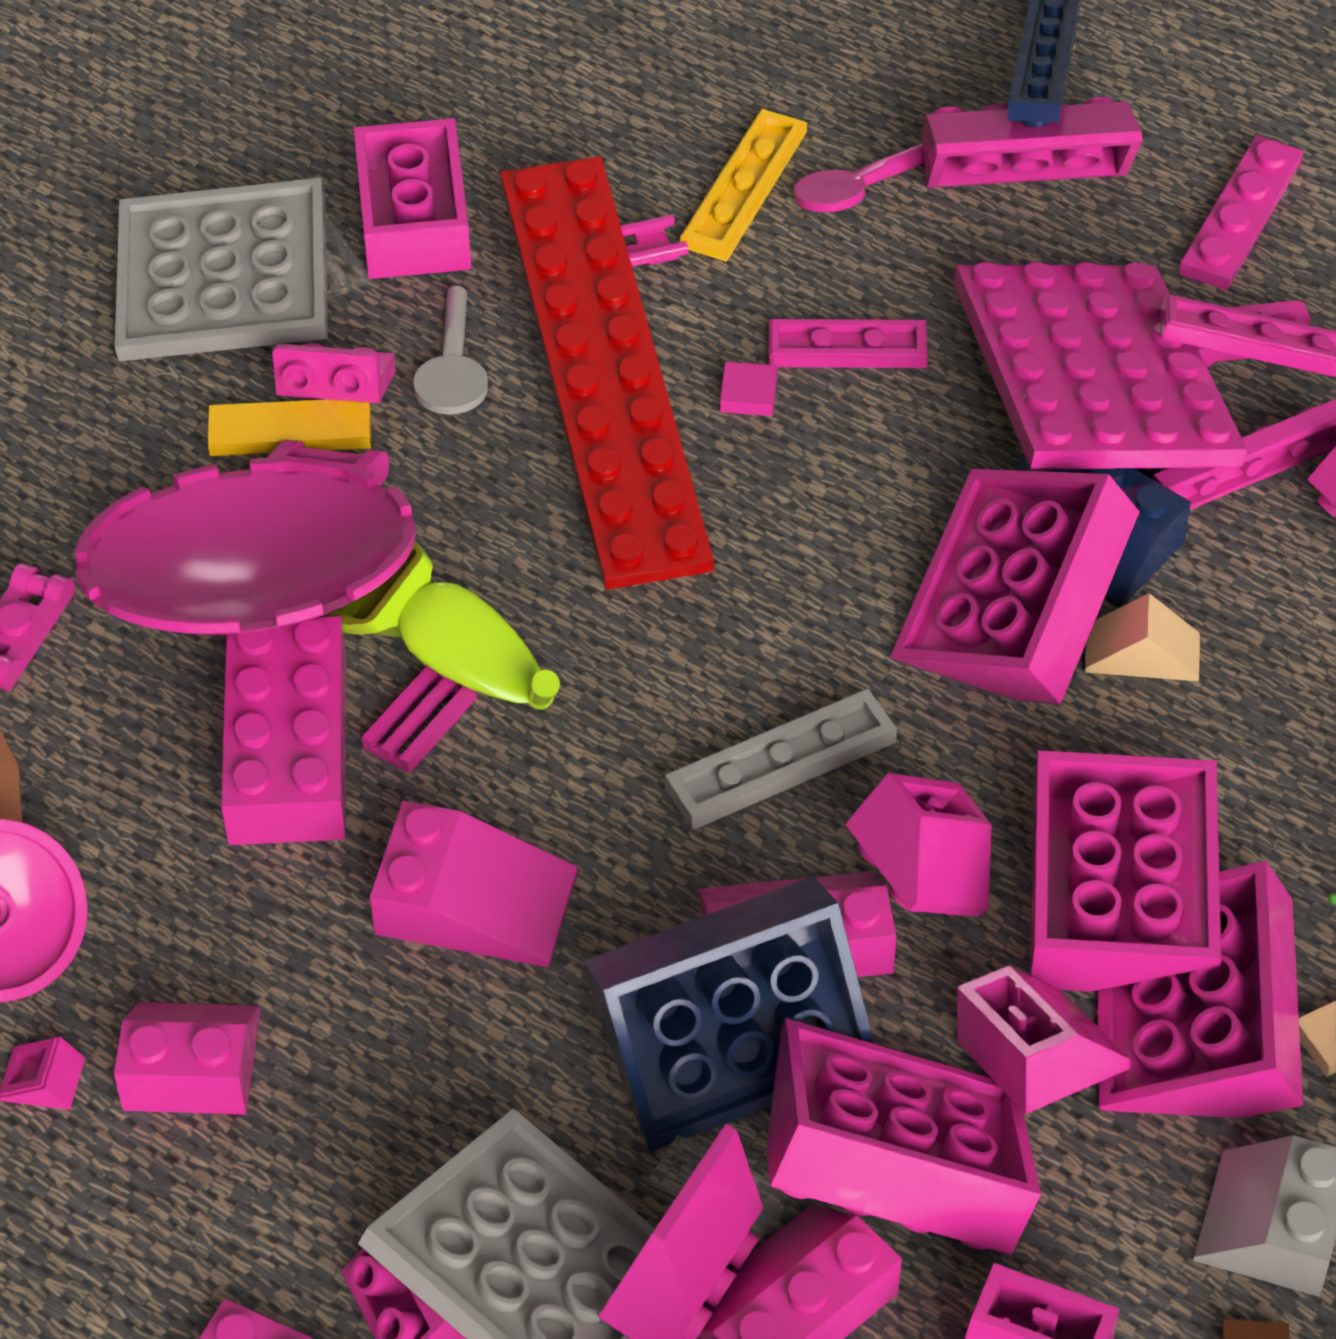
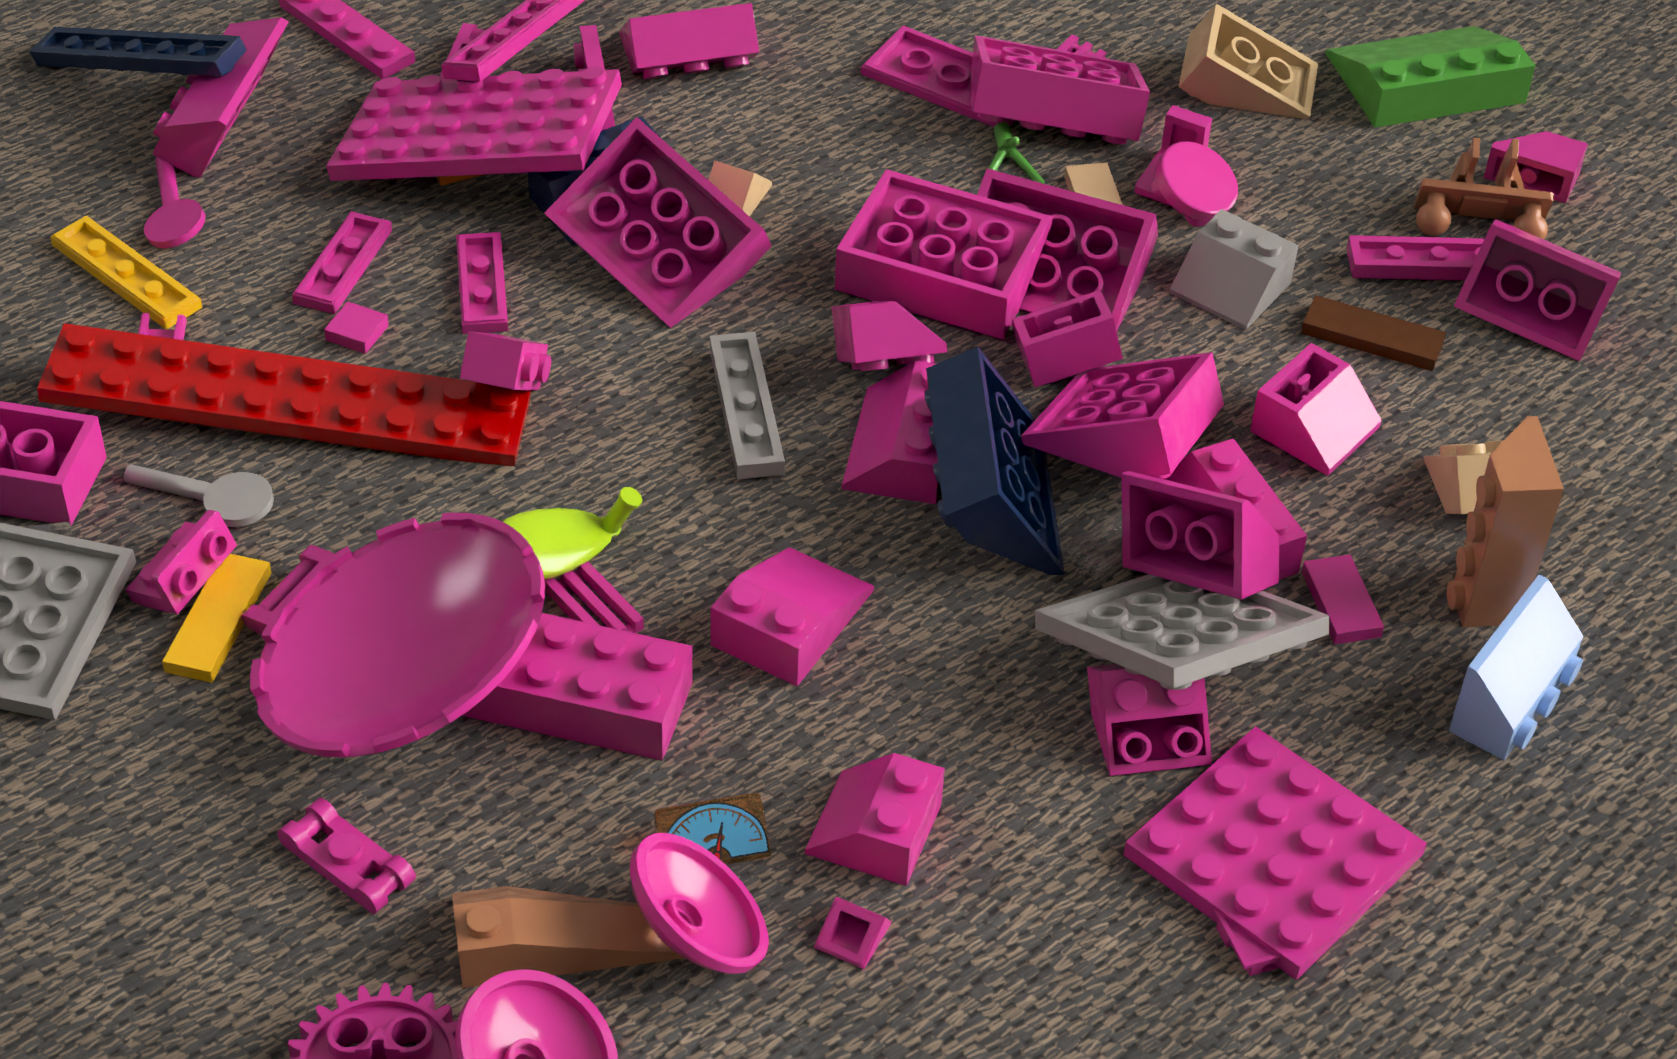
camera: 75 degrees left, 5 degrees down
(129, 913) = (726, 827): none -> slope
(713, 513) = (505, 361): none -> dark pink brick
(874, 467) = (481, 283): none -> dark pink tile

